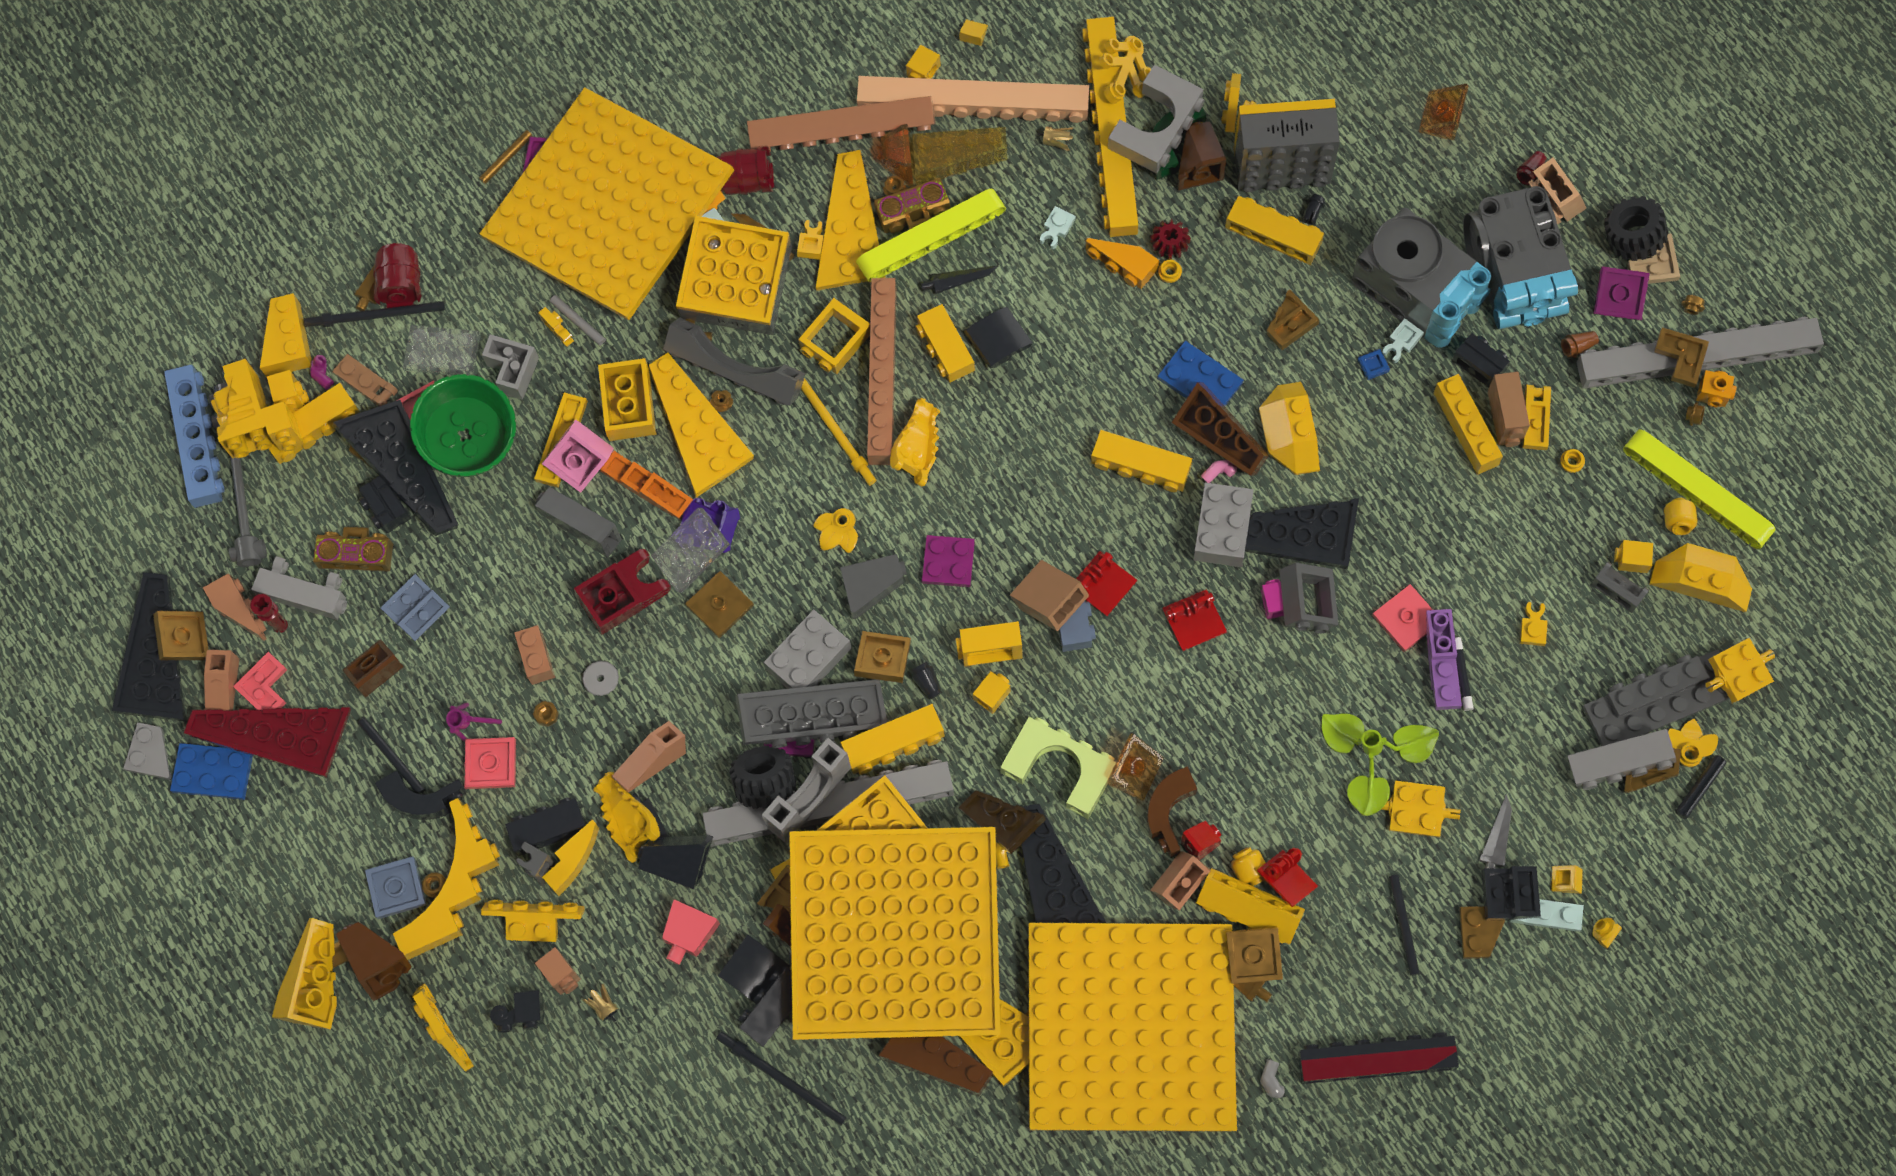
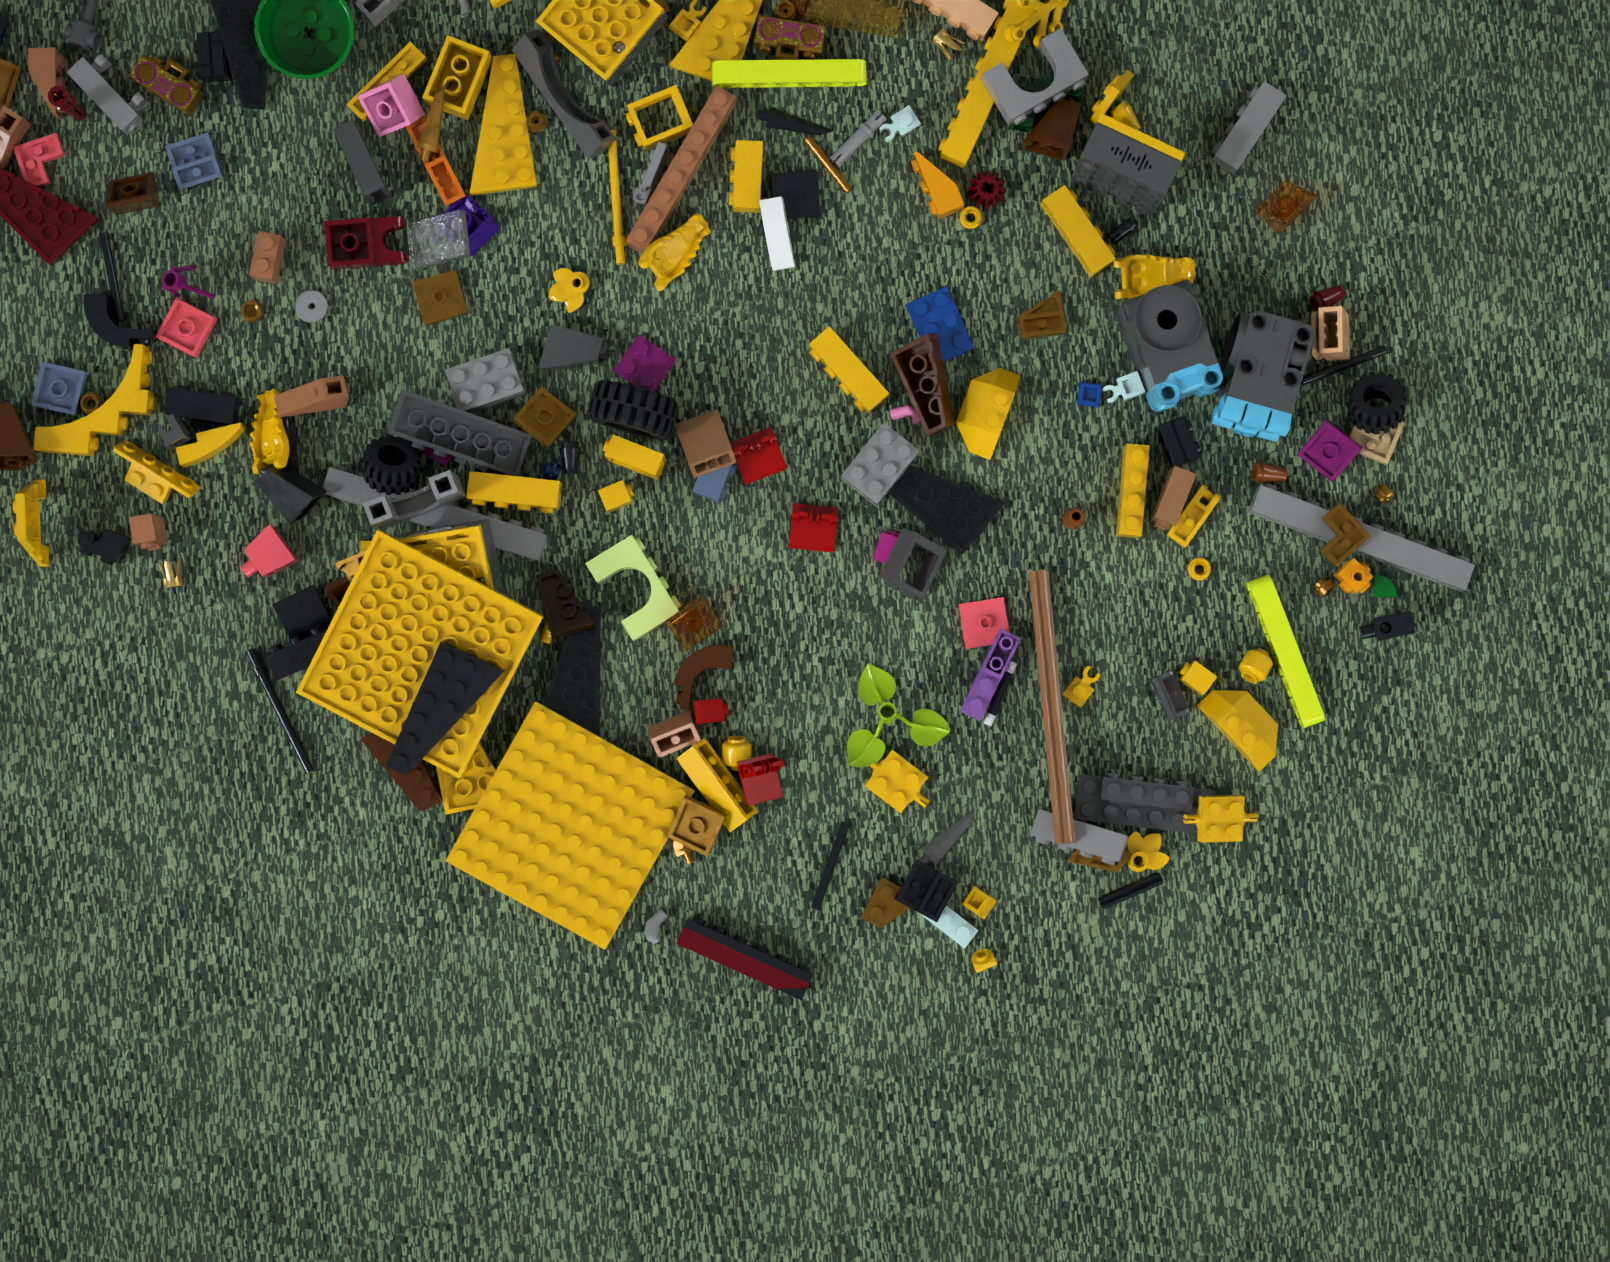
camera: 25 degrees right, 15 degrees up
(630, 458) = (431, 132): none -> pearl gold bar
(855, 389) = (651, 175): none -> light grey hinge
(916, 700) = (551, 470): none -> dark blue plate
(943, 956) = (446, 694): none -> black wing
(965, 597) = (633, 410): none -> black tyre
(1002, 376) = (777, 233): none -> white slope
(1012, 295) = (827, 163): none -> pearl gold bar
(1029, 249) = (858, 138): none -> light grey pin
(1359, 228) = (1146, 271): none -> yellow animal
(1369, 65) = (1248, 128): none -> light grey brick
(1430, 477) = (1069, 522): none -> dark orange cone
(1521, 656) = (1051, 707): none -> medium nougat axle
(1586, 214) = (1338, 367): none -> black bar
(1748, 385) = (1383, 587): none -> green tile
(1783, 407) = (1399, 625): none -> black torso

